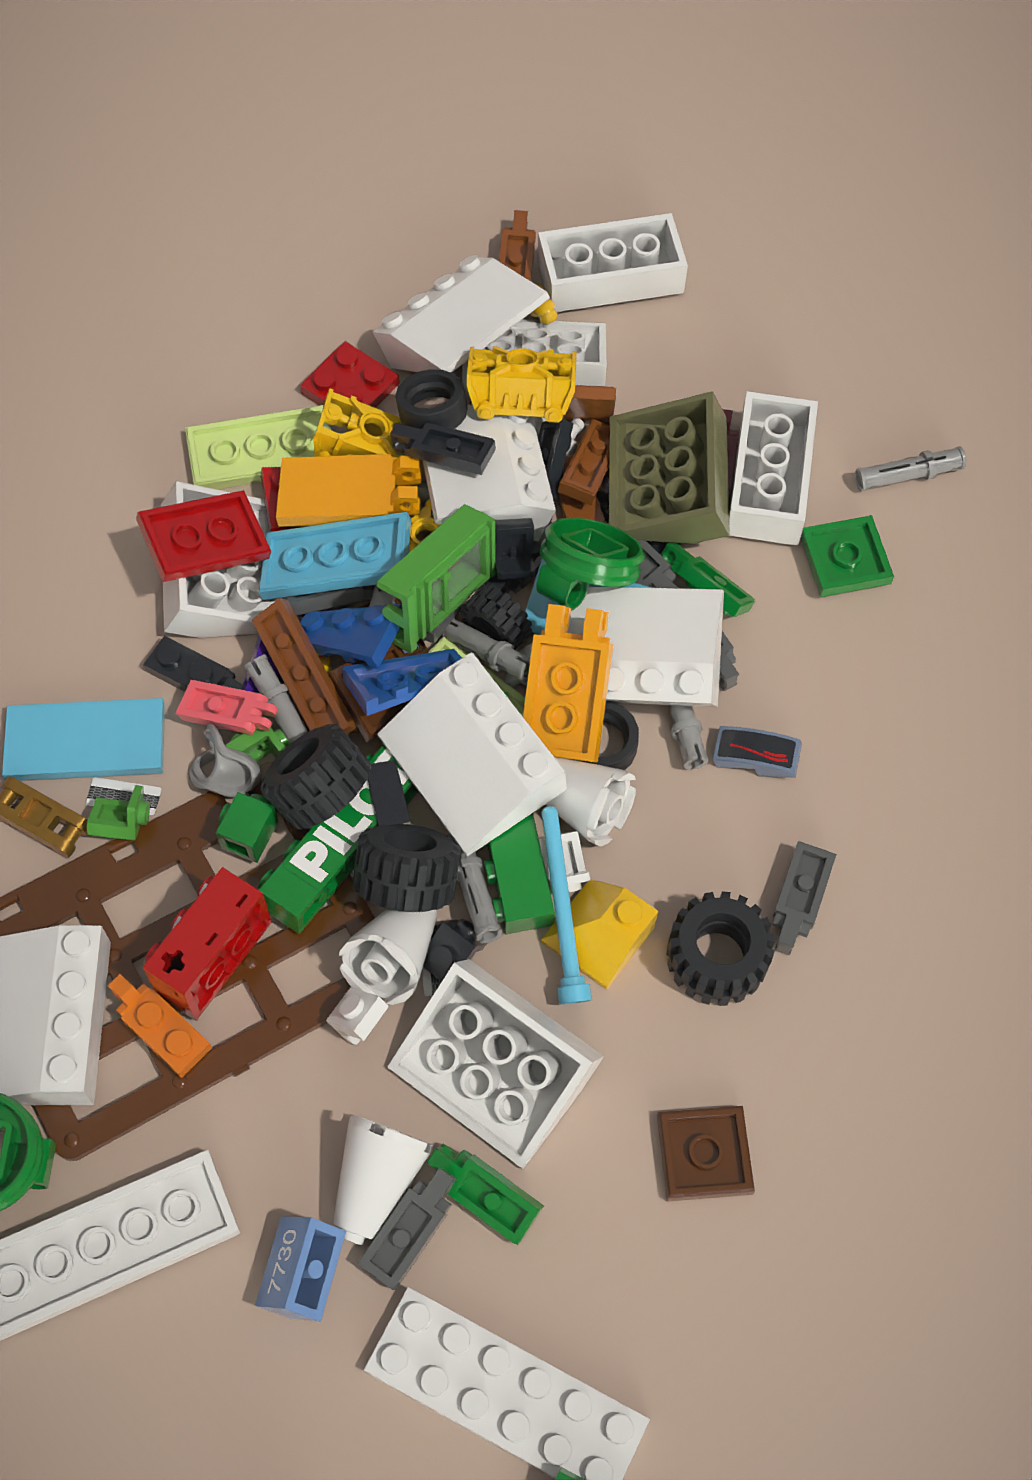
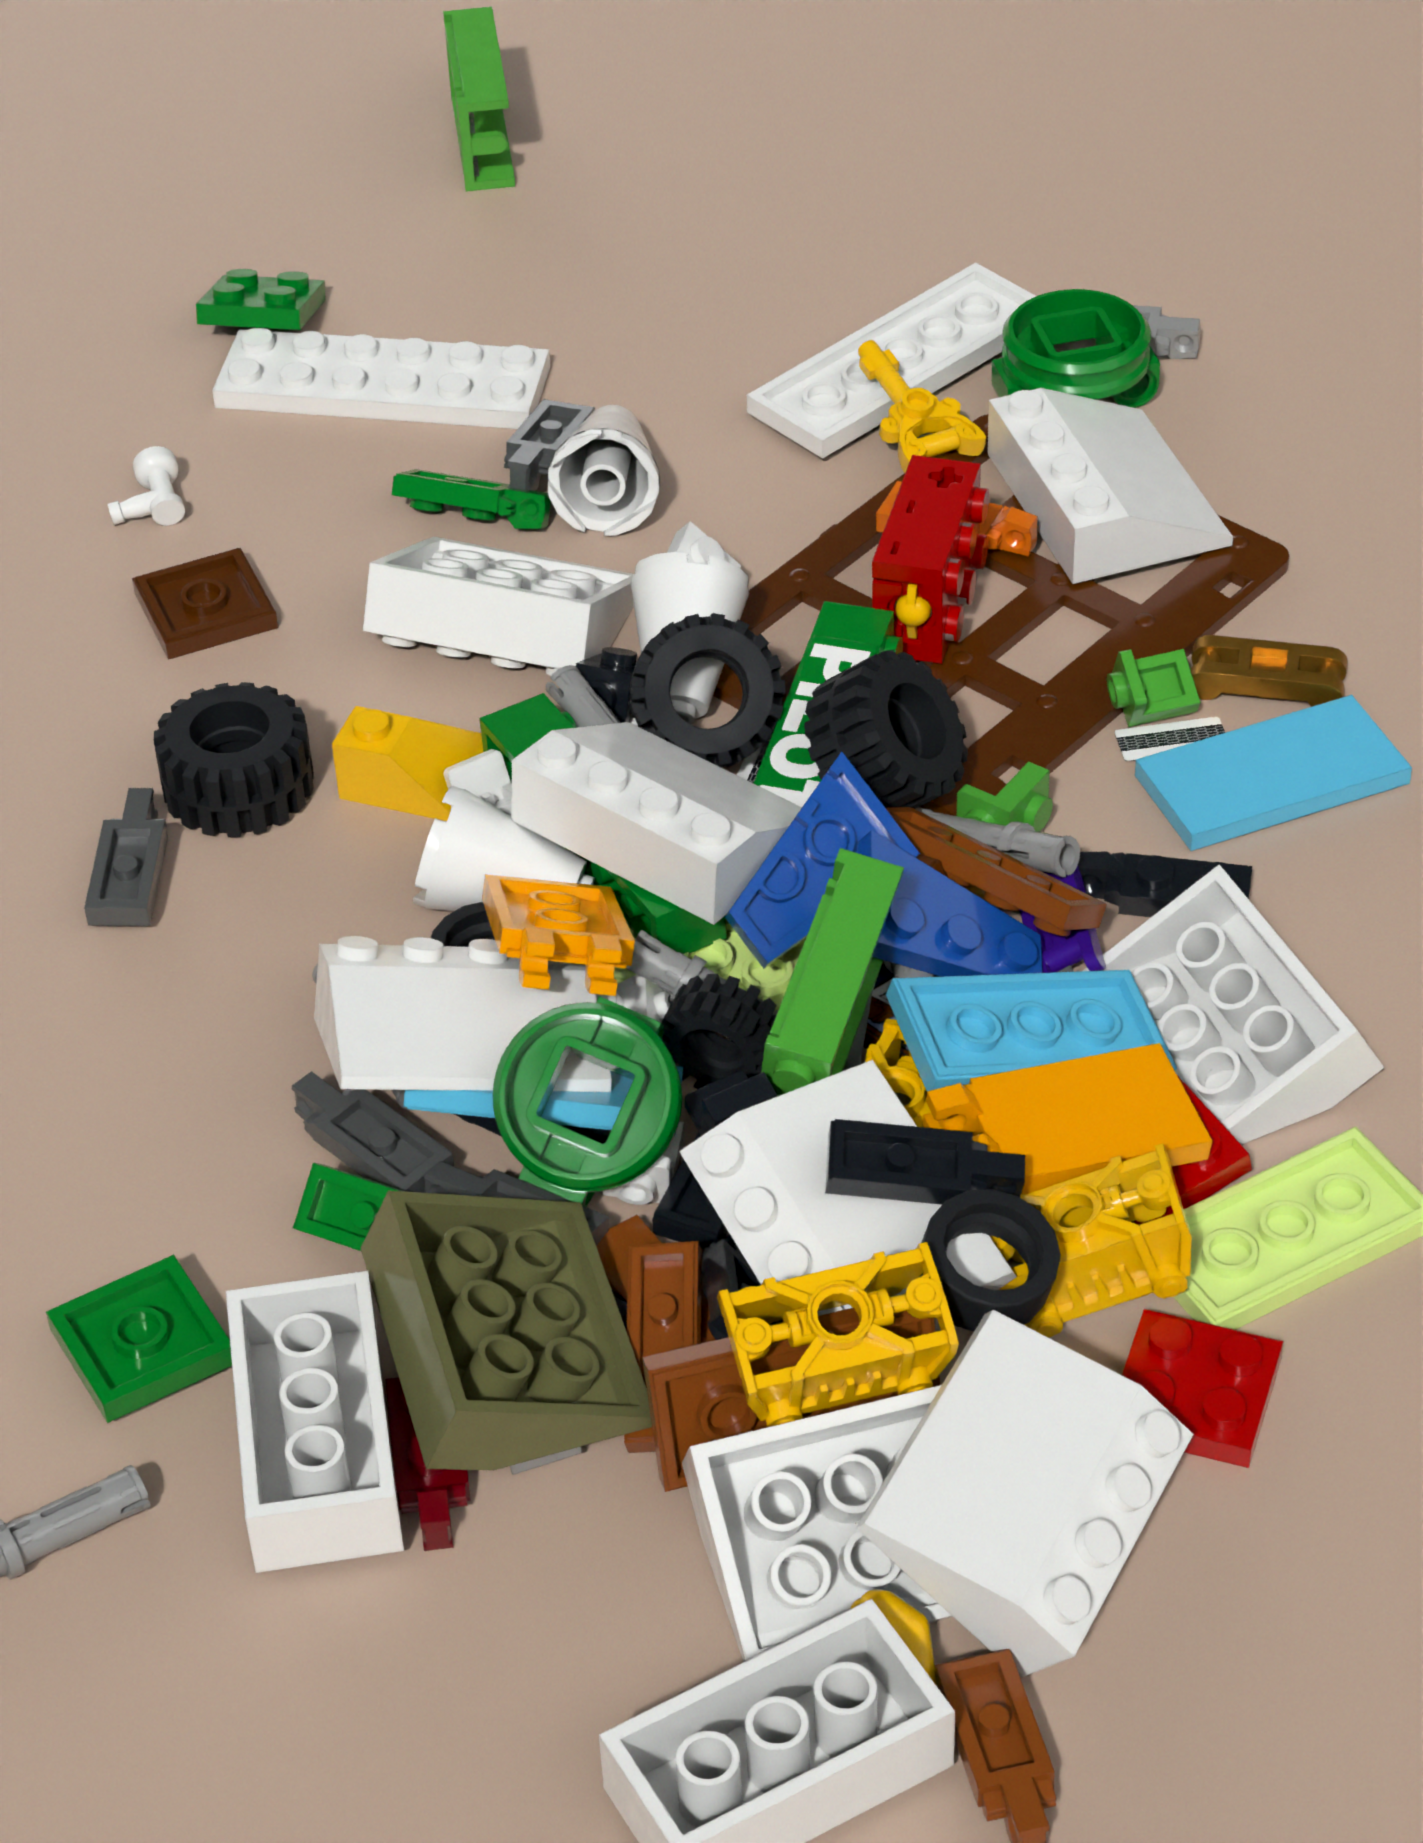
camera: 165 degrees right, 20 degrees down
(127, 1149) = (917, 413): none -> yellow piece
(203, 535) = (1254, 970): red tile -> none
(226, 708) = (1075, 808): coral hinge -> none
(232, 771) = (1005, 760): light grey piece -> none
(246, 825) = (970, 687): green brick -> none
(300, 1268) = (656, 377): medium blue brick -> none
(388, 794) = (775, 763): black sticker -> none
(573, 986) = (429, 687): medium azure piece -> none
(717, 1284) = (154, 470): none -> white piece
(757, 749) = (218, 1011): slope -> none

